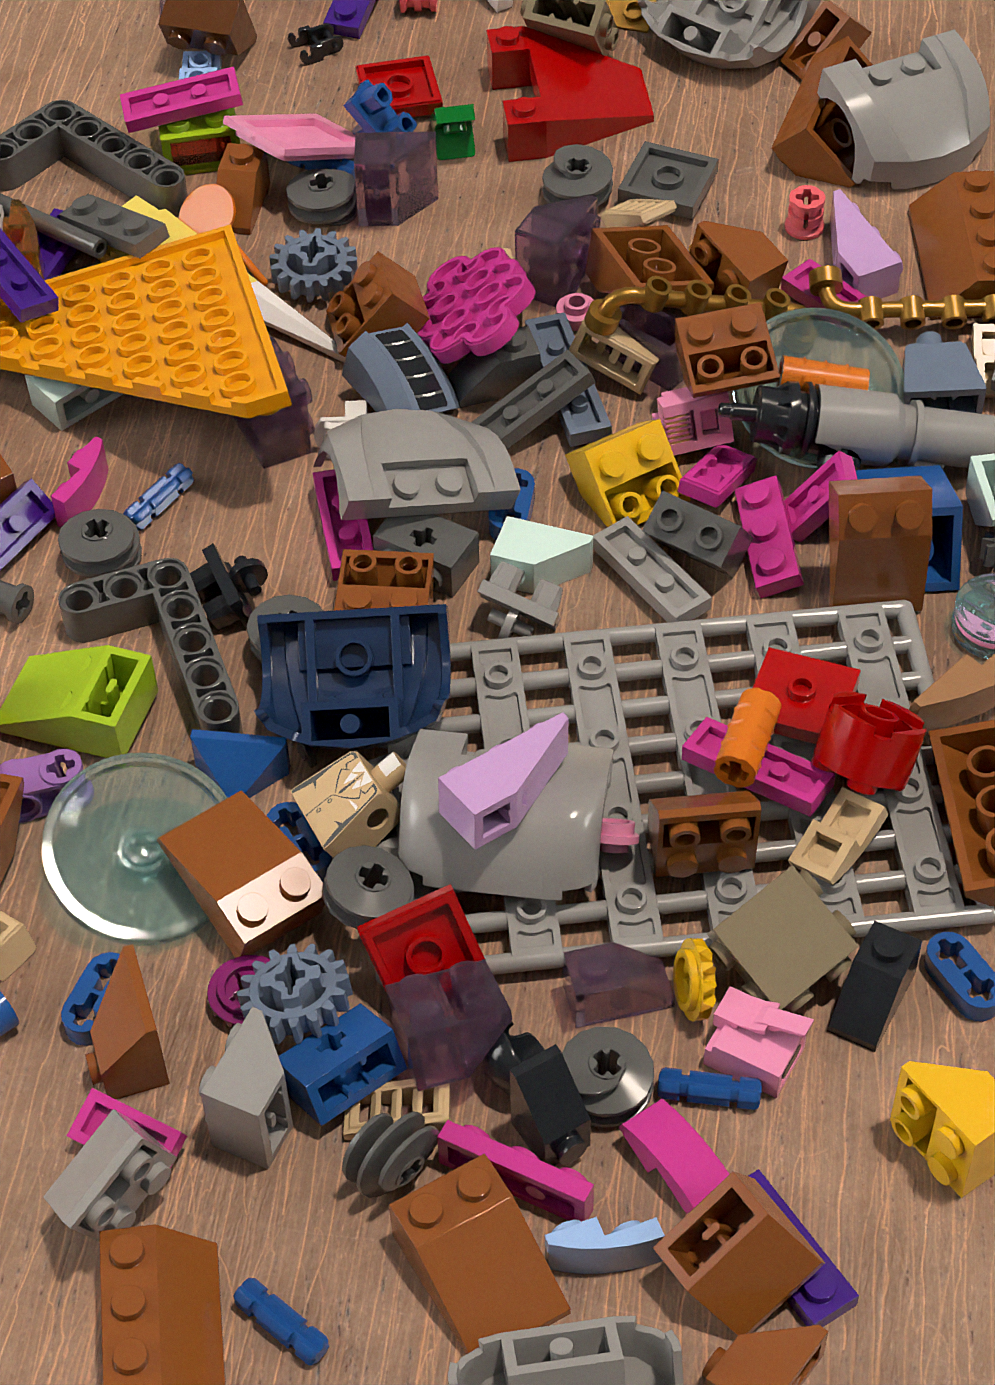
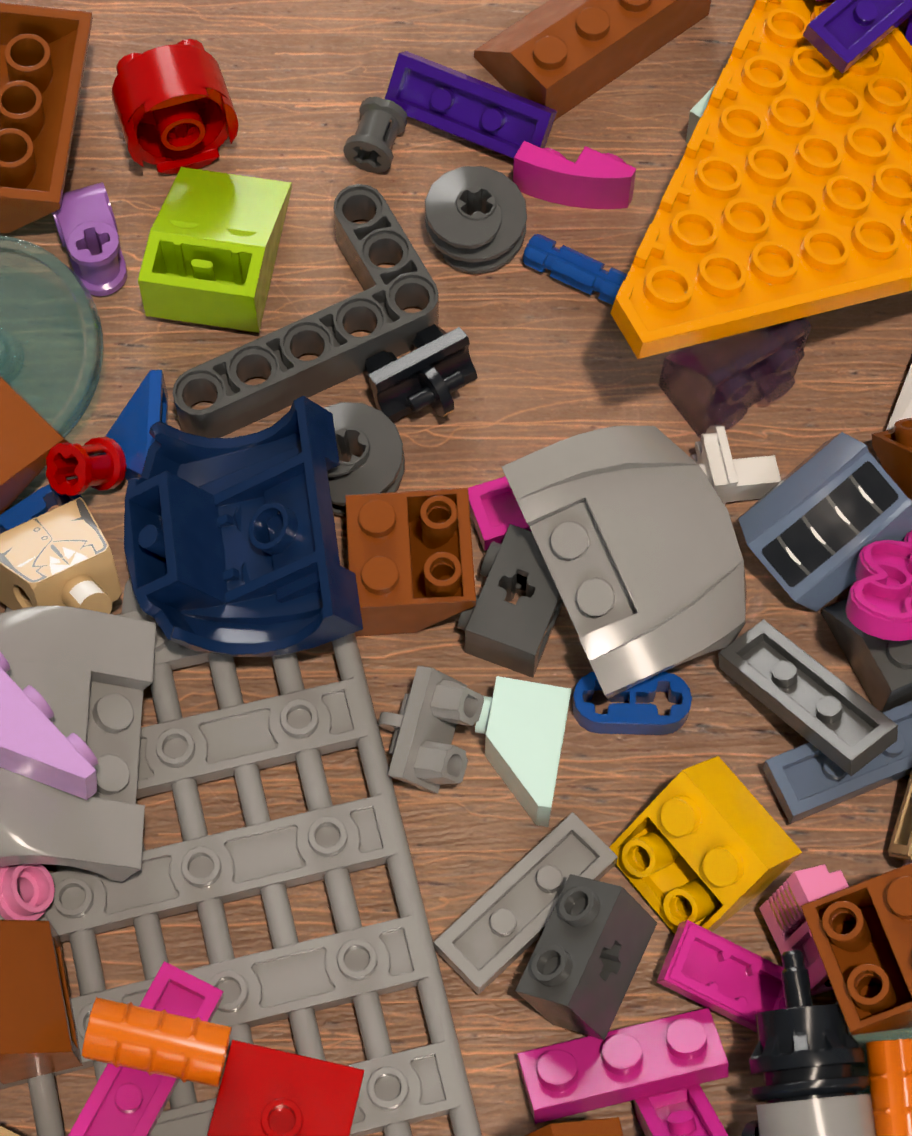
camera: 80 degrees right, 15 degrees up
(273, 796) = (92, 471): none -> red bush

